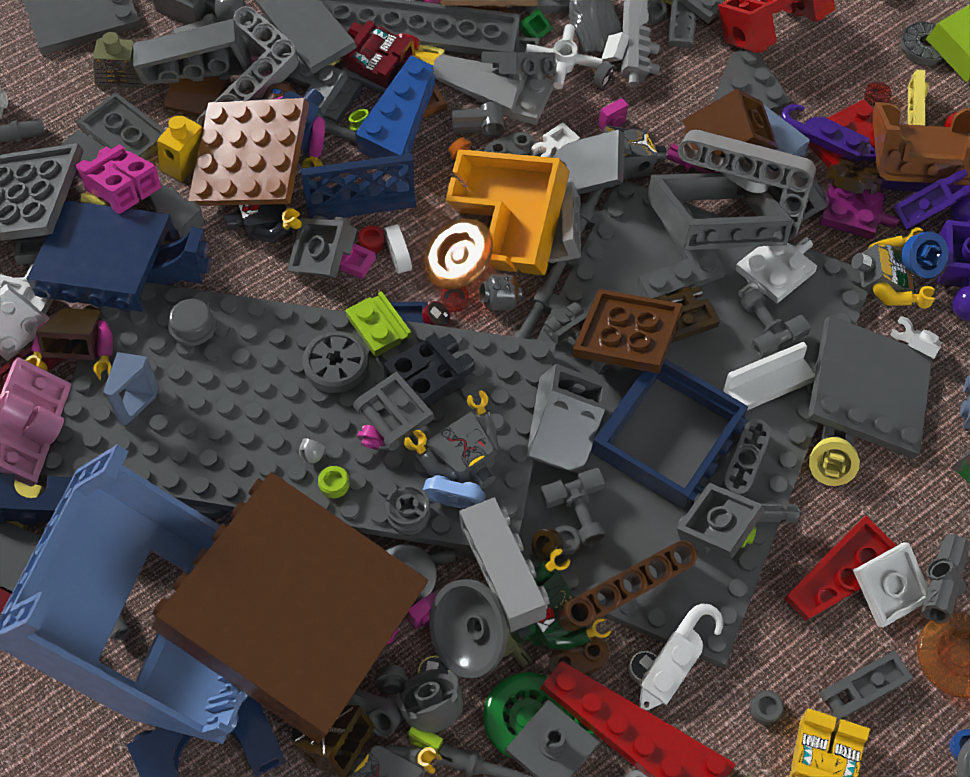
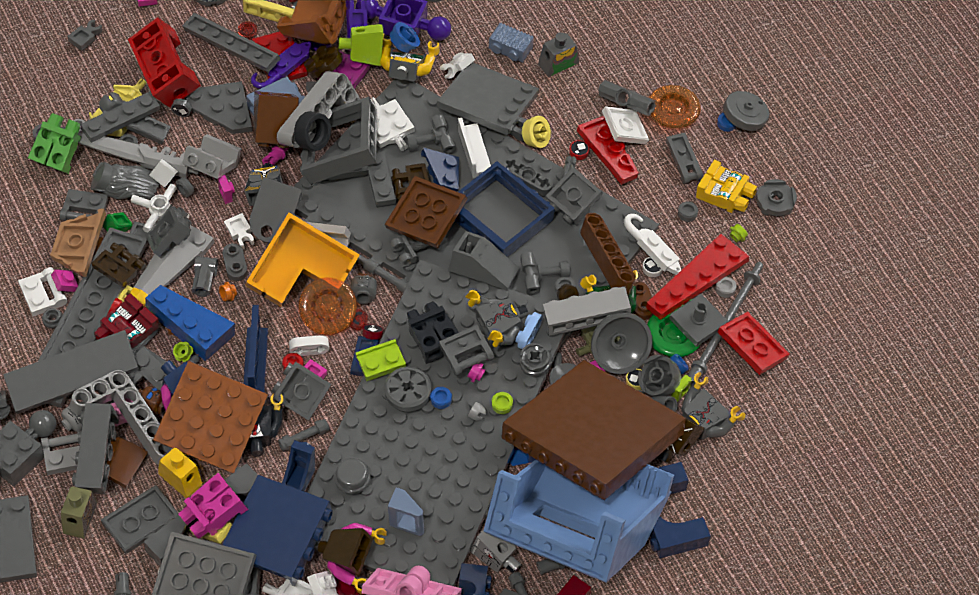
camera: 80 degrees left, 5 degrees down
(251, 255) = (319, 427): none -> dark grey bar
(330, 405) = (441, 397): none -> blue tile
(455, 25) = (114, 268): none -> dark brown plate
(469, 729) = (680, 362): none -> blue tile
(649, 88) = (213, 157): none -> light grey panel
(698, 182) = (302, 127): none -> black tyre
(718, 346) = (443, 168): none -> wing
(724, 47) = (181, 107): none -> tile
(828, 529) = (579, 149): none -> tile
(840, 73) = (231, 42): none -> dark grey plate
(895, 210) = (364, 44): none -> lime torso

